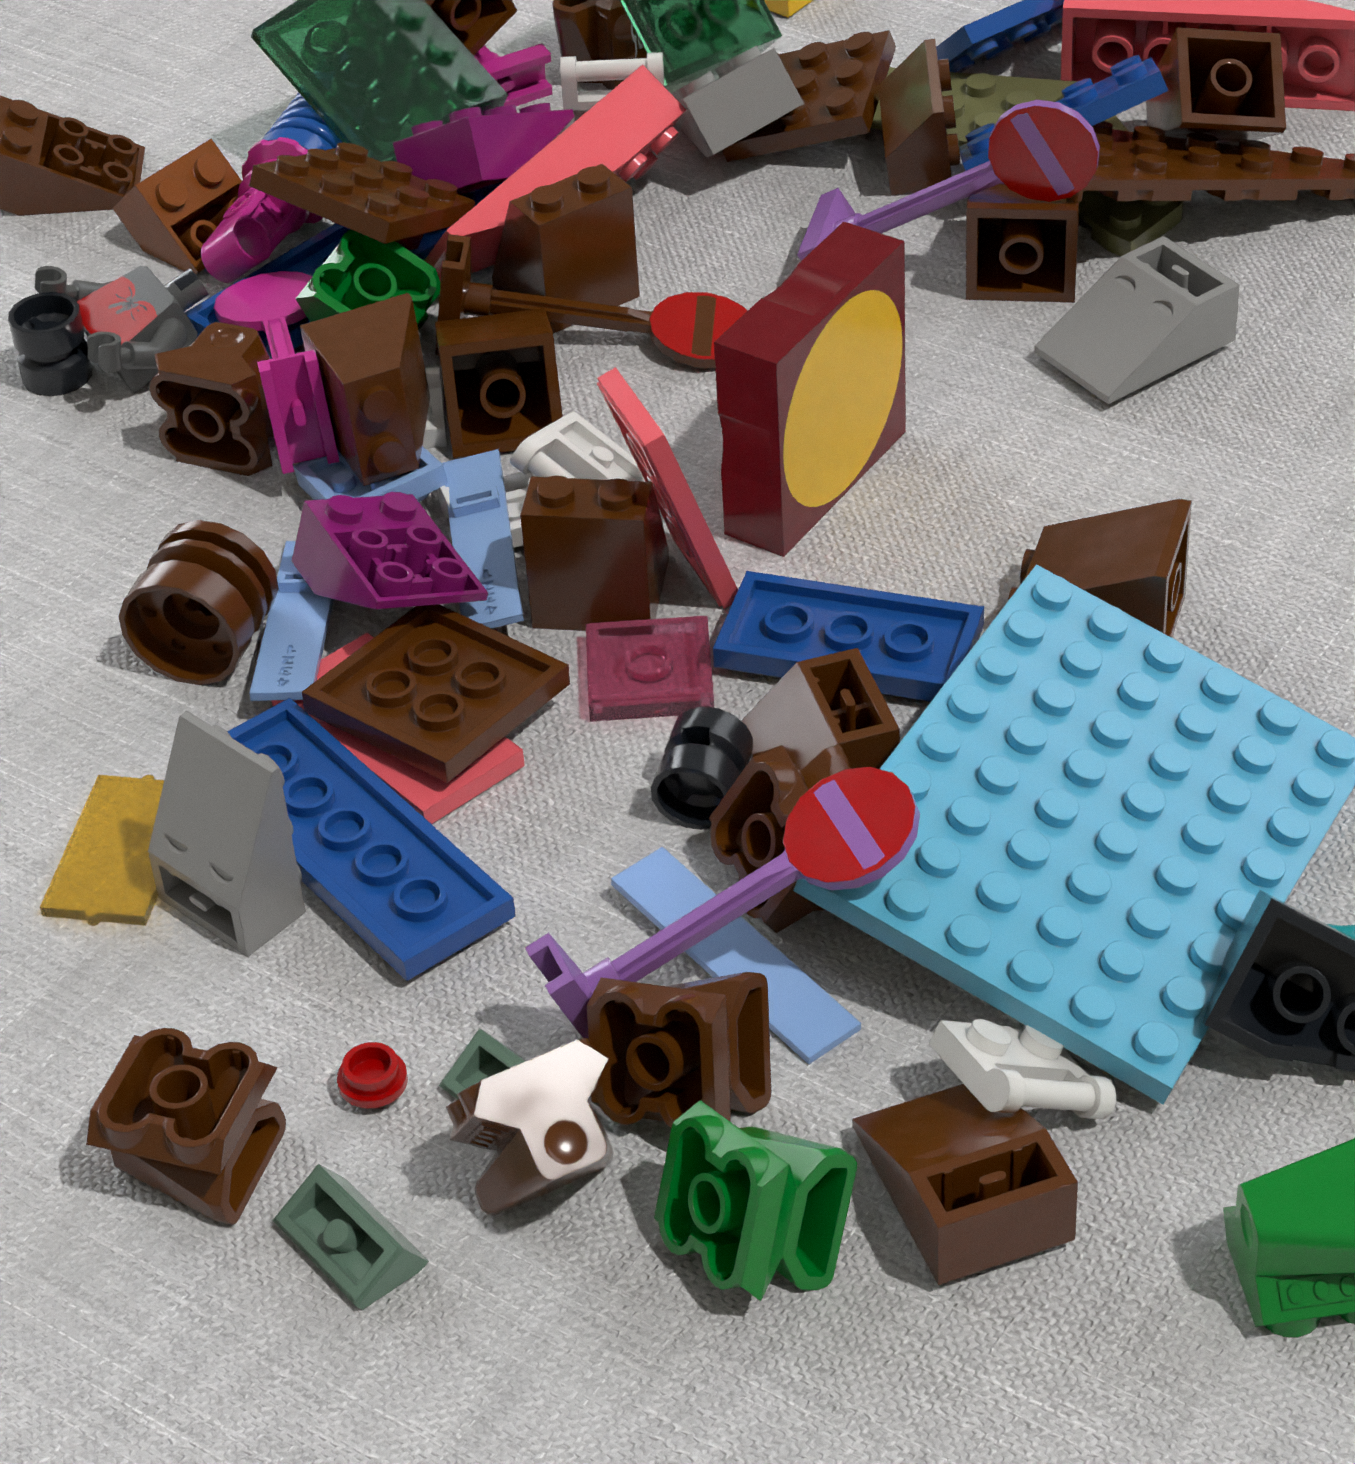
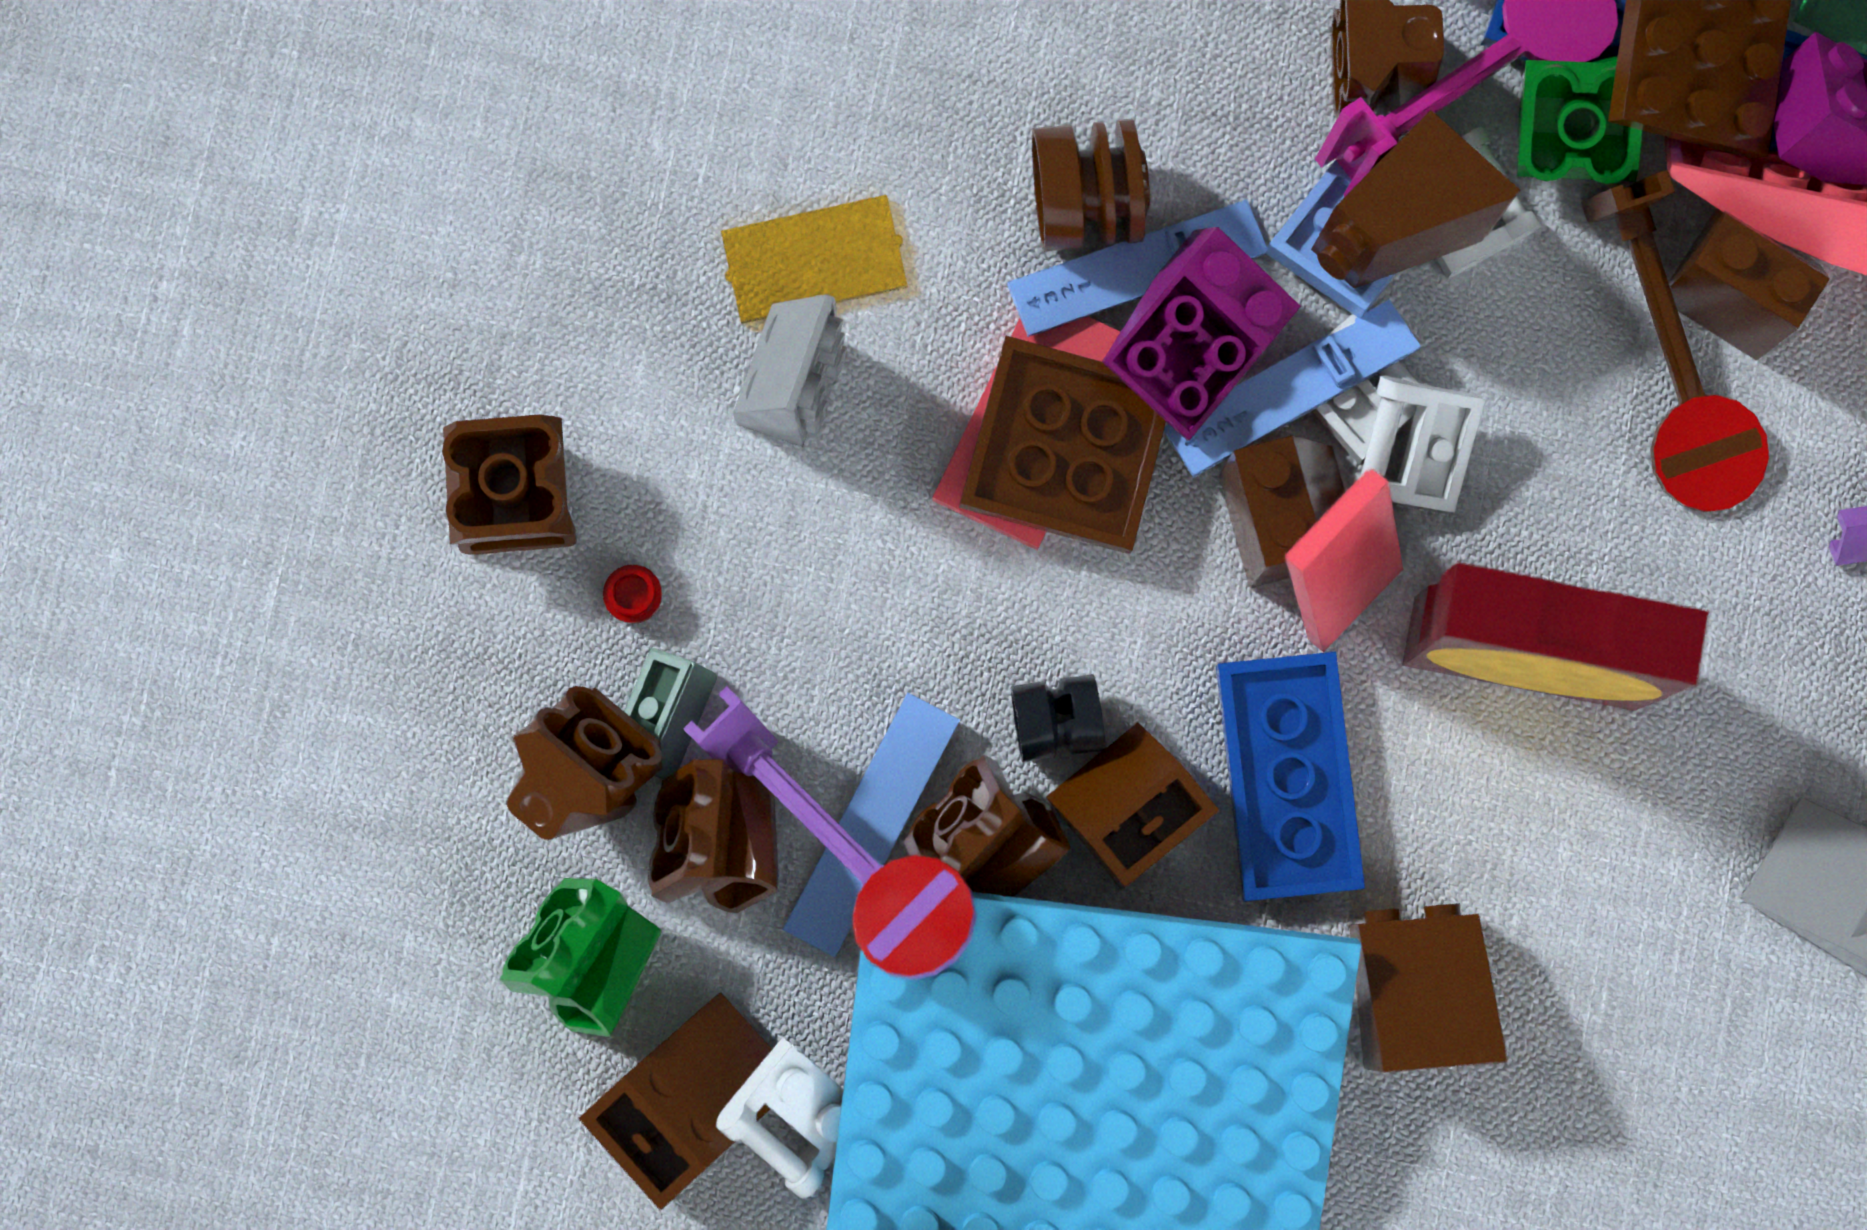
camera: 65 degrees right, 40 degrees up
(348, 1238) = (479, 651): sand green slope -> none
(371, 850) = (882, 445): blue plate -> none
(498, 379) = (1536, 293): reddish brown slope -> none
(648, 668) = (1194, 608): clear pink tile -> none

